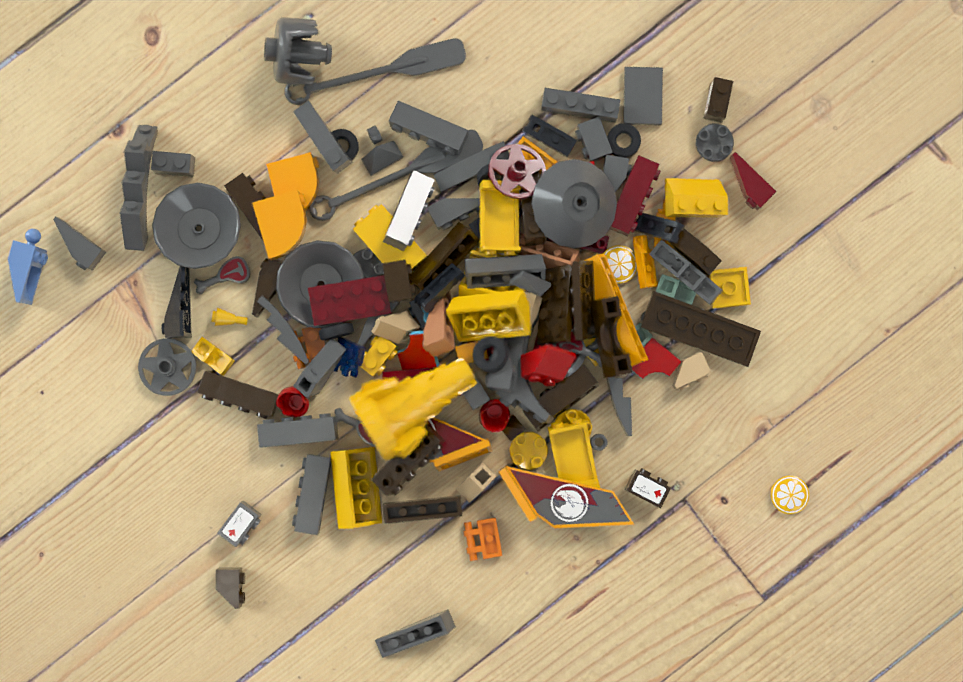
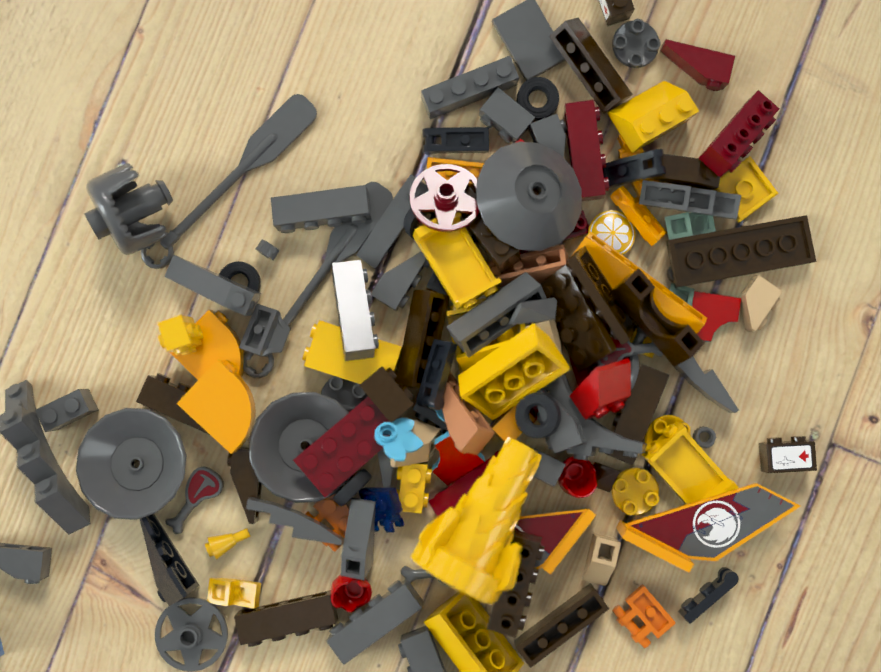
camera: 30 degrees left, 0 degrees up
(282, 158) = (180, 335): none -> yellow brick
(339, 190) = (265, 332): none -> dark grey slope
(381, 157) = (289, 269): dark grey slope -> none
(388, 315) = (400, 439): none -> medium azure plate
(537, 549) = (708, 595): none -> black plate
(673, 138) = (590, 64): none -> dark brown brick
(744, 246) = (739, 133): none -> dark red brick

